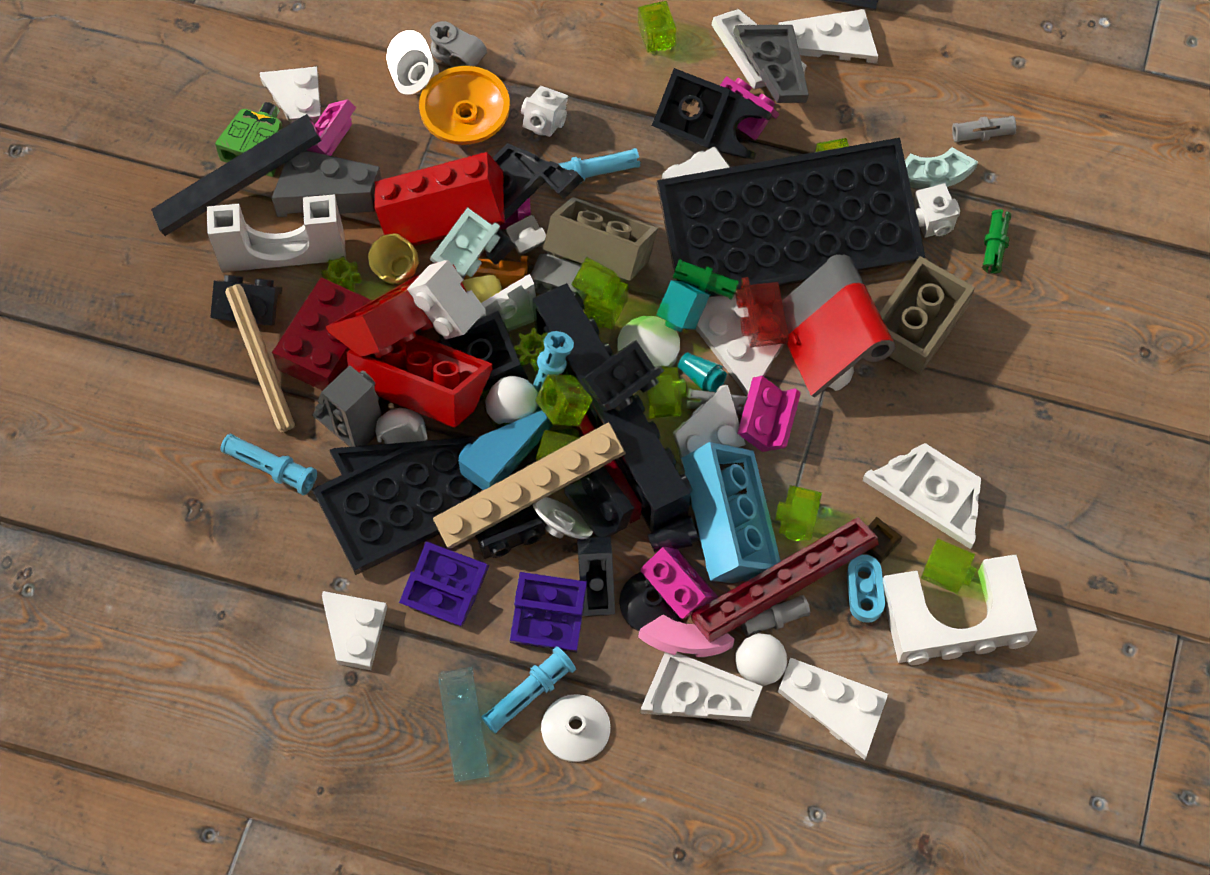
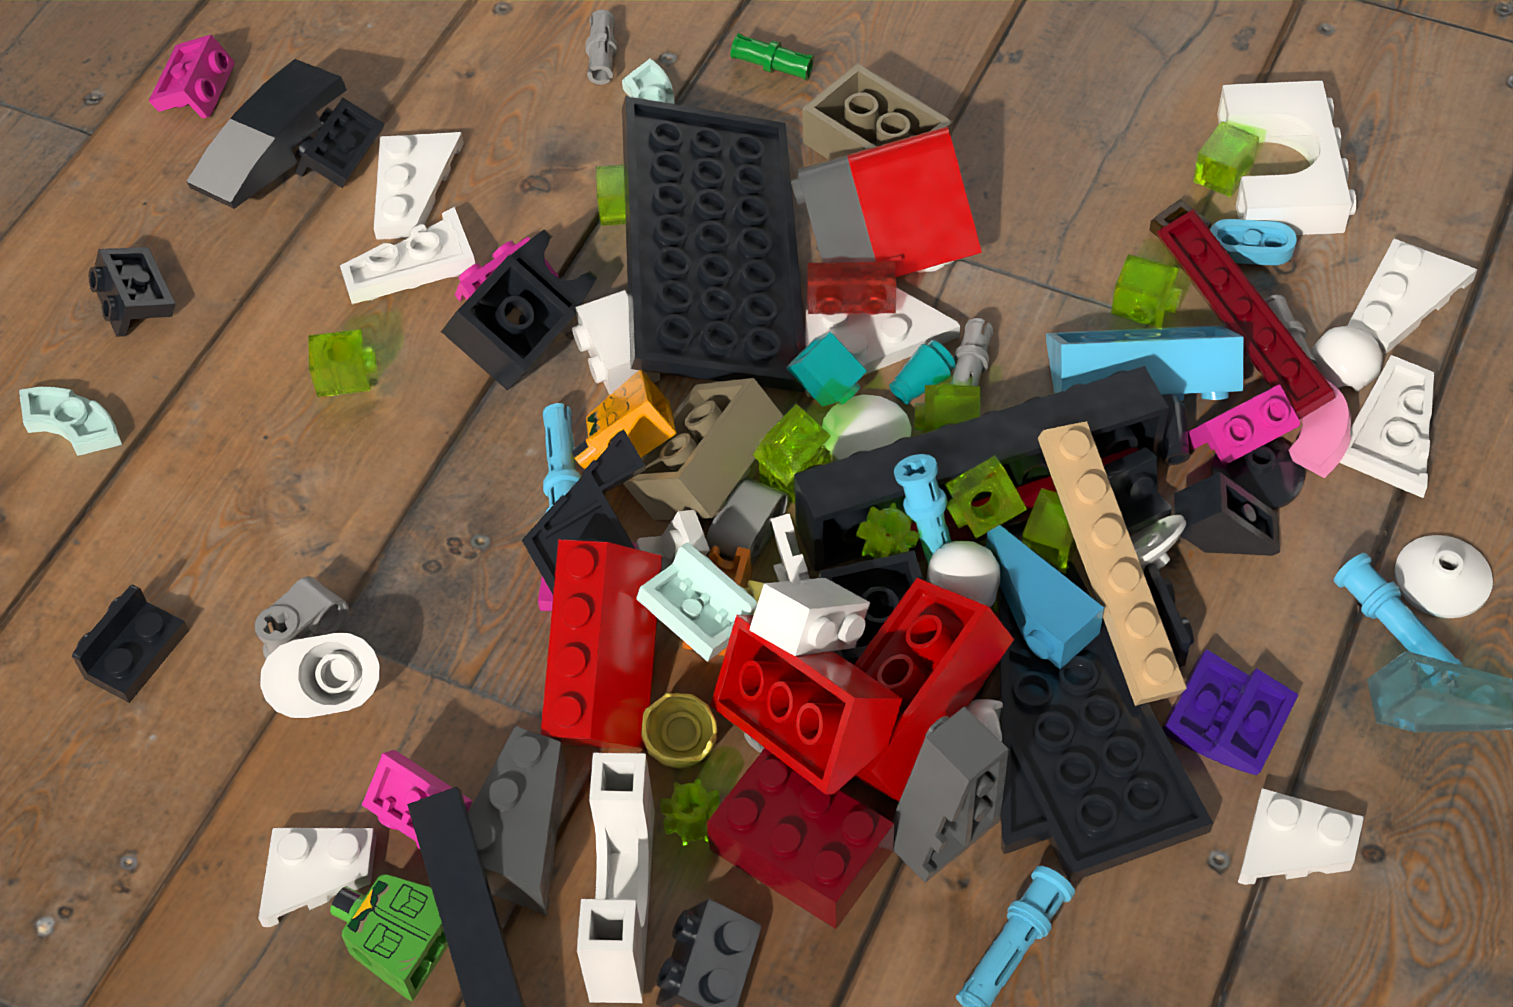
camera: 80 degrees left, 10 degrees down
(260, 358) = (828, 935): tan axle -> none
(461, 93) = (417, 588): light orange dish -> none
(544, 111) = (456, 507): white brick -> none
(548, 612) = (1285, 580): dark purple slope -> none
(610, 193) = (636, 408): none -> light orange torso
(621, 377) = (976, 407): black bracket -> none
(705, 279) = (790, 339): green pin -> none
(711, 422) = (1011, 364): white wing -> none
(768, 415) = (1002, 300): dark pink bracket -> none
(776, 59) = (448, 224): dark grey wing -> none
(933, 490) = (1117, 162): white wing -> none
(936, 210) = (724, 92): white brick -> none

